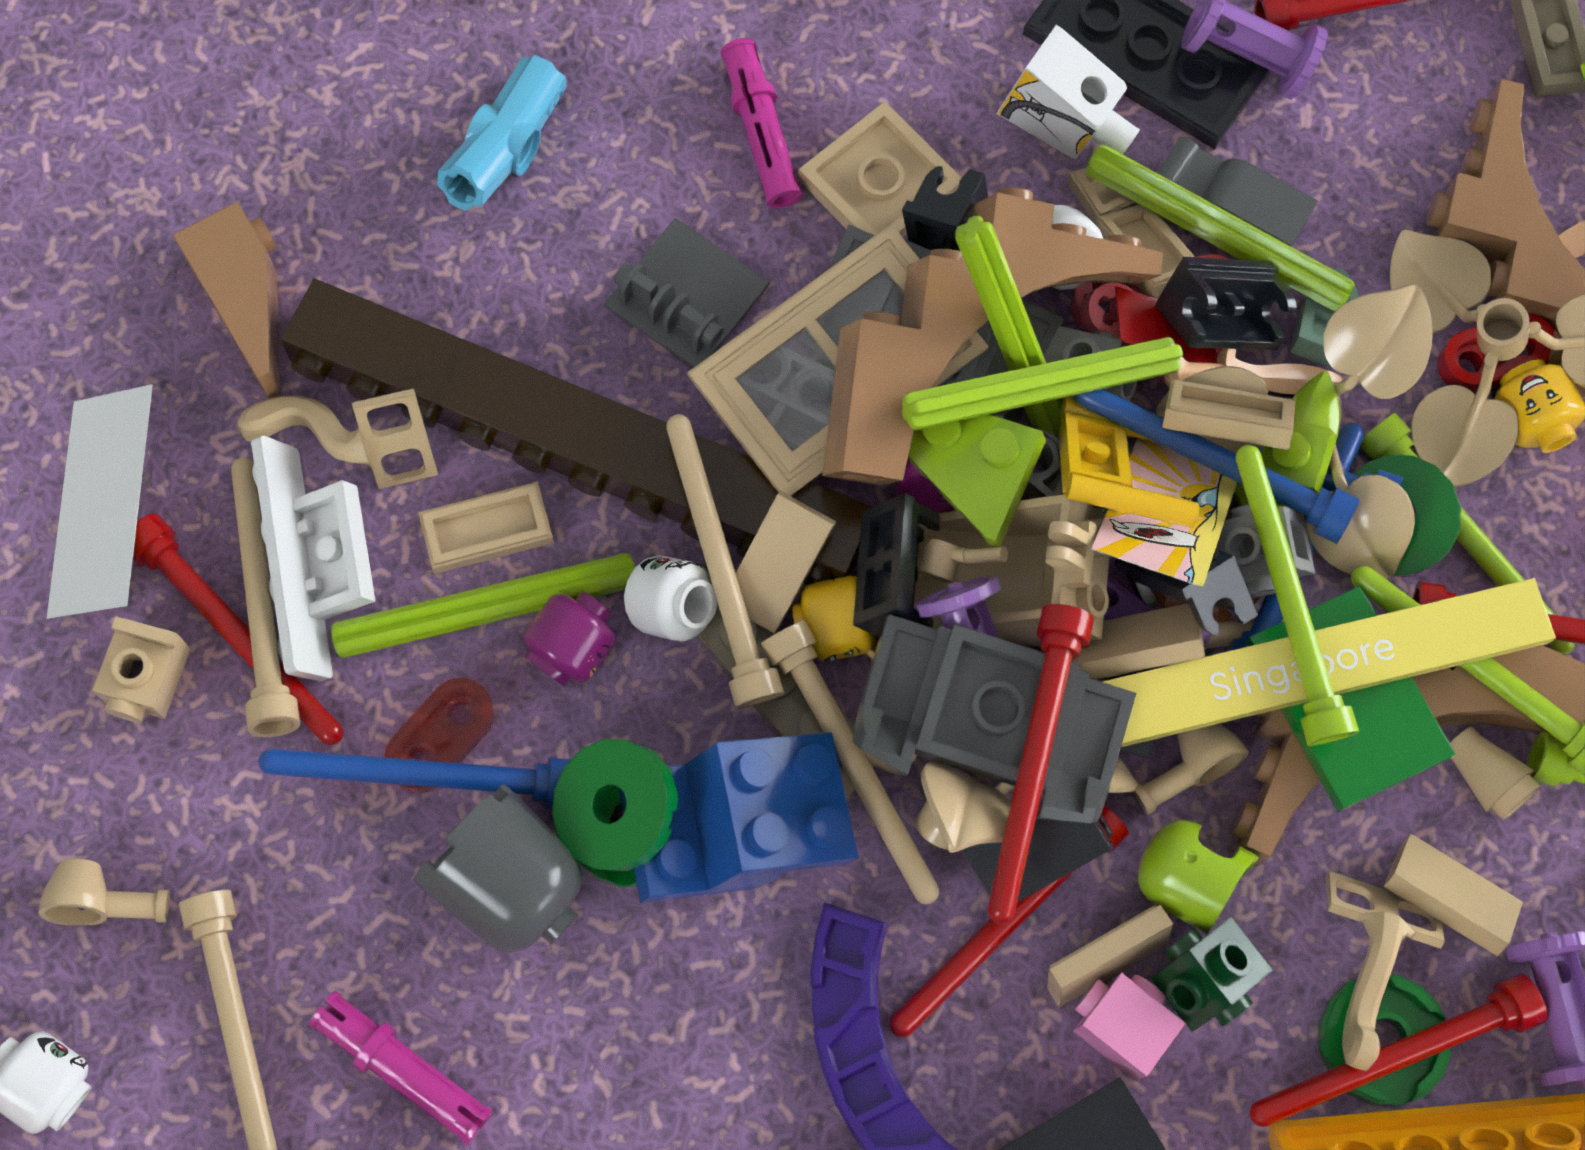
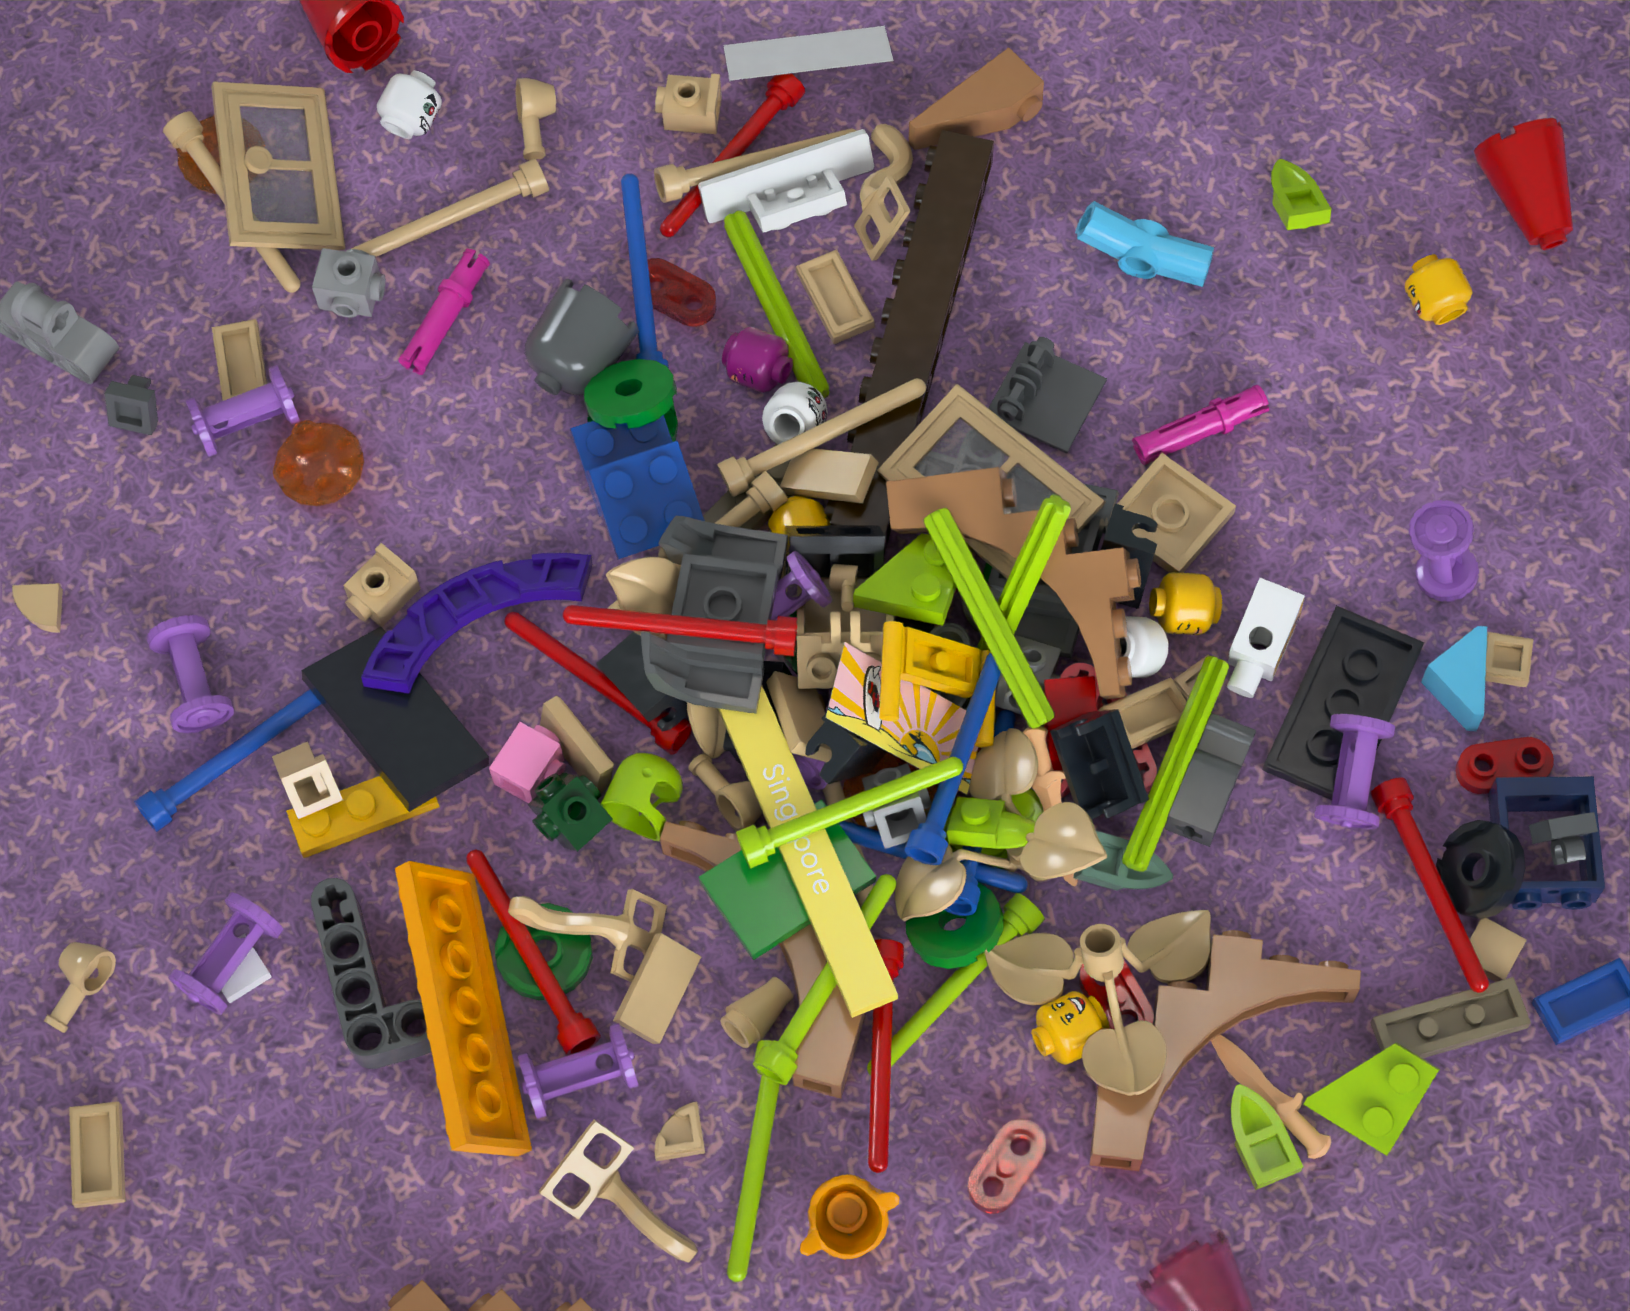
camera: 90 degrees right, 5 degrees down
(1009, 163) = (1186, 603): none -> yellow head
(1229, 414) = (992, 757): tan tile -> none

